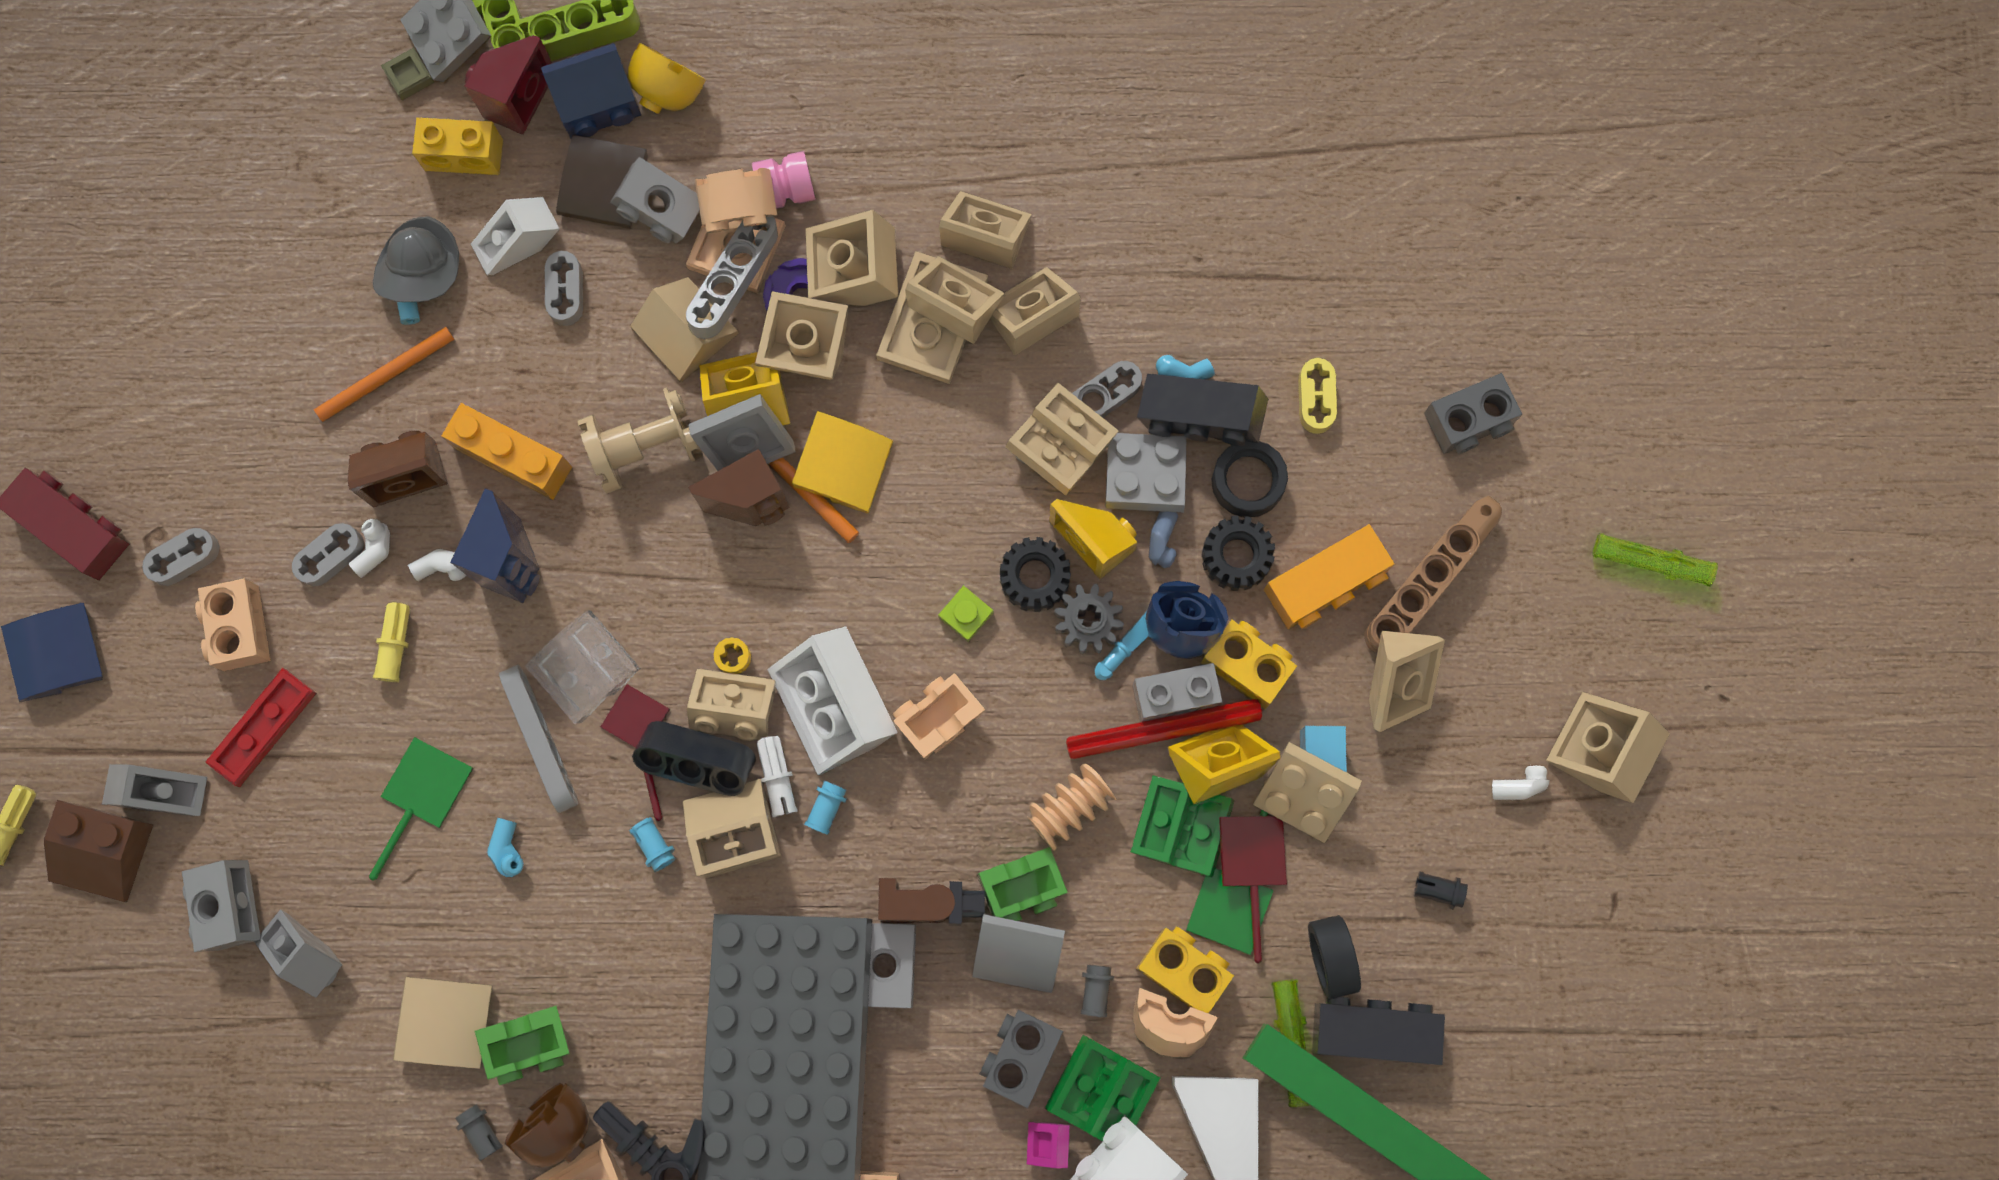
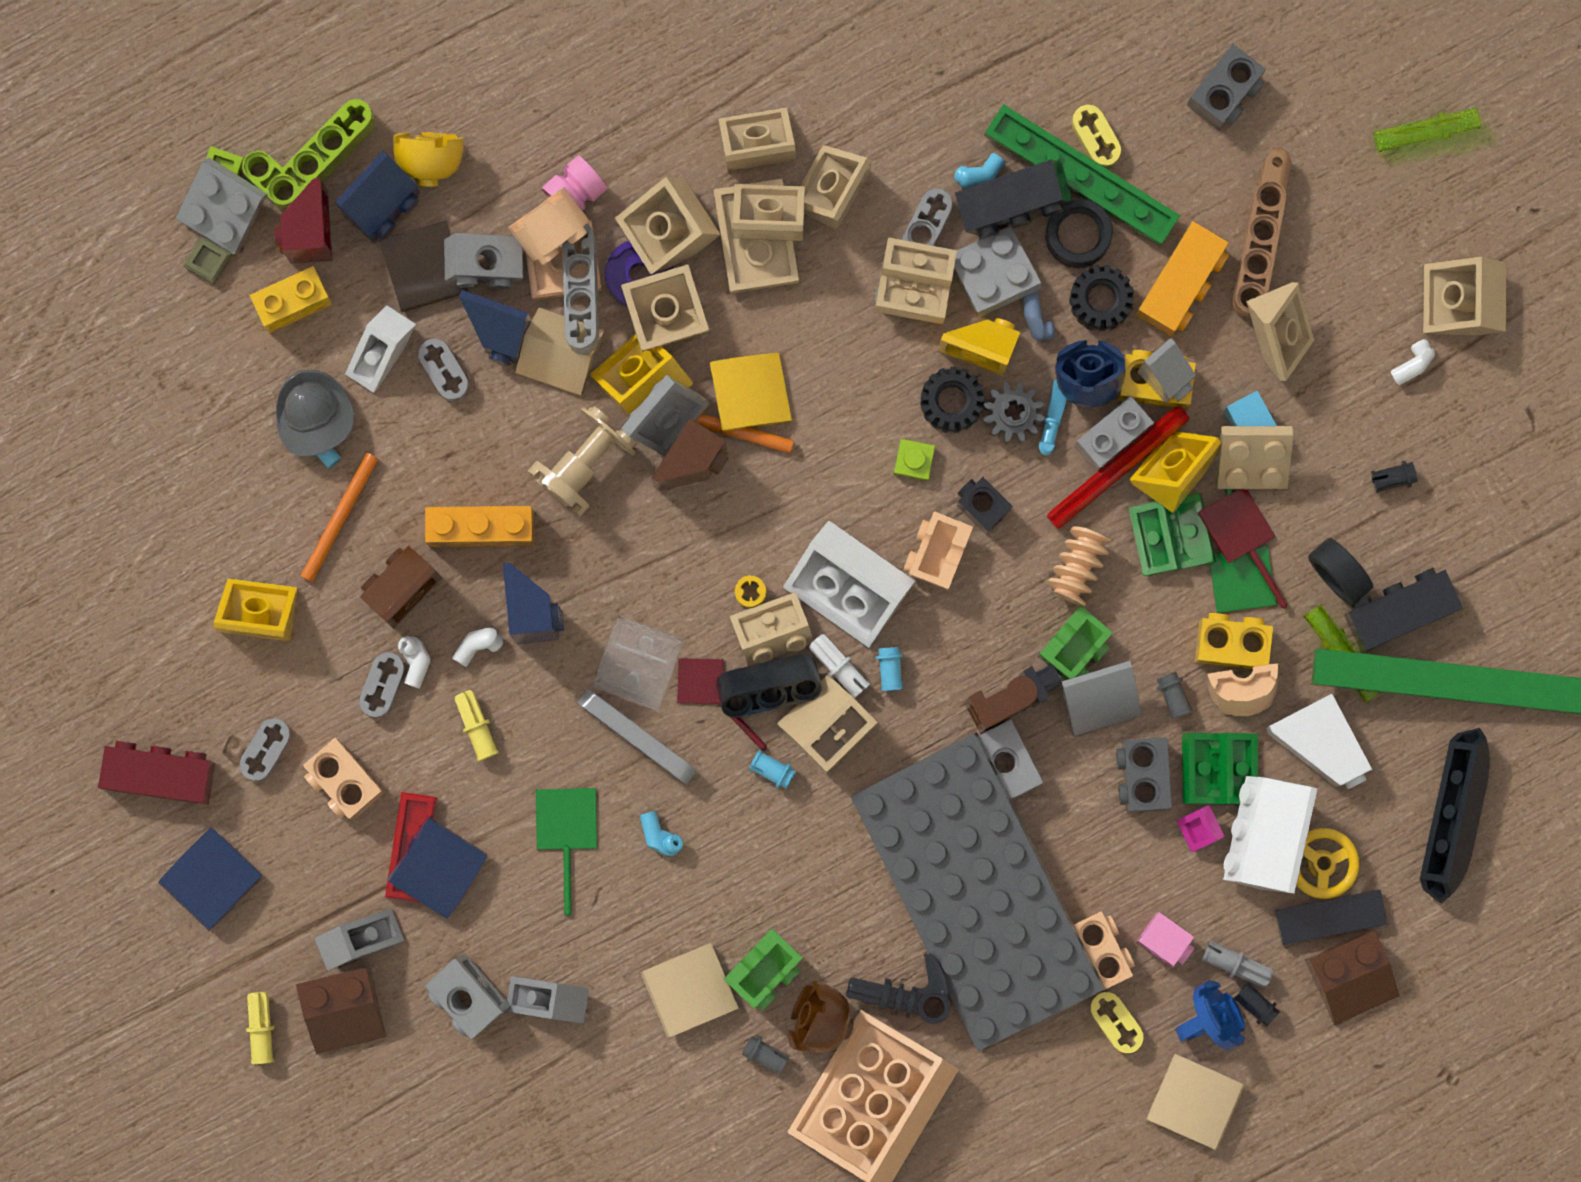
camera: 30 degrees left, 5 degrees up
(251, 418) = (256, 610): none -> yellow slope
(268, 761) = (437, 867): none -> dark blue slope
(630, 267) = (497, 326): none -> dark blue slope
(1008, 711) = (983, 520): none -> black brick
(1263, 657) = (1168, 372): none -> light grey slope
(1286, 427) = (1083, 175): none -> green plate

